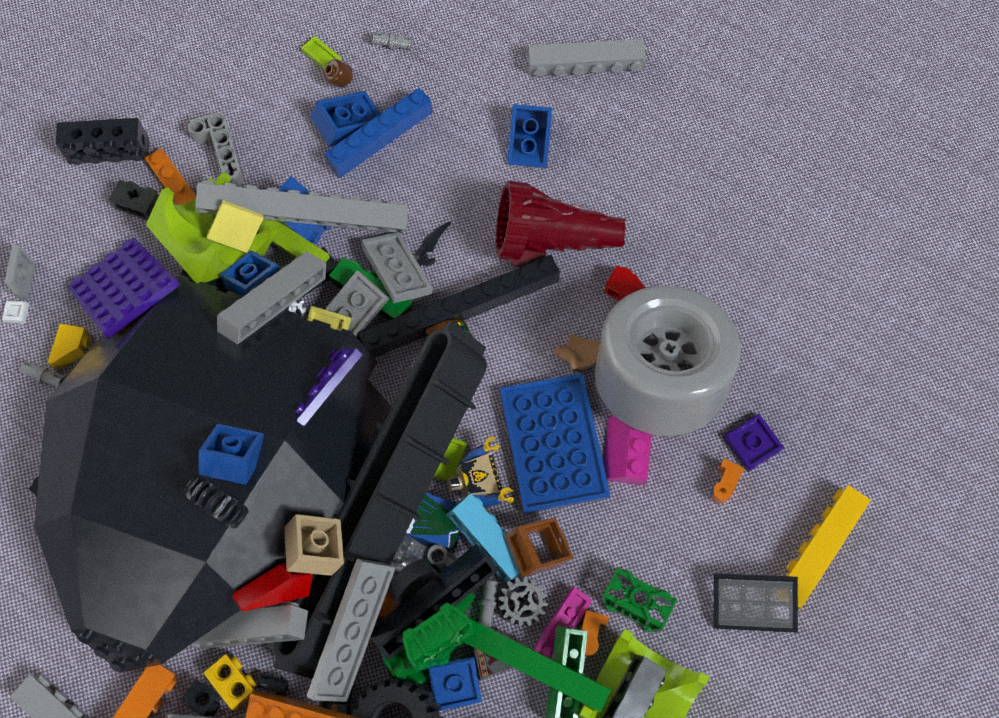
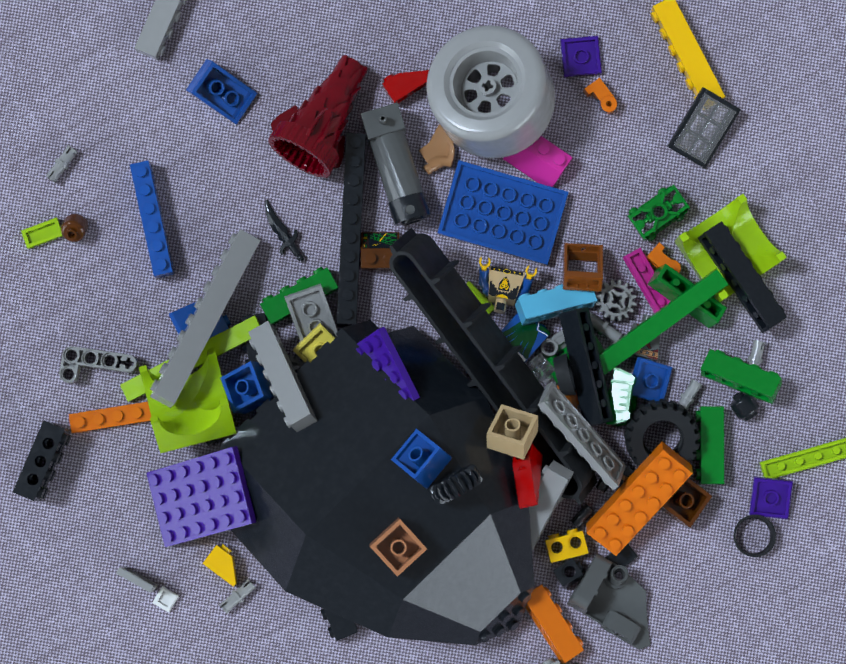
camera: 60 degrees left, 15 degrees up
(120, 474) = (397, 546): none -> nougat brick
(133, 199) = (121, 454): pearl dark grey brick -> none
(235, 226) = (200, 380): light yellow tile -> none
(342, 116) = (121, 240): blue slope -> none
(396, 267) = (291, 265): light grey plate -> none
(436, 636) = (617, 375): green piece -> none
(573, 291) = (395, 164): none -> dark grey piece

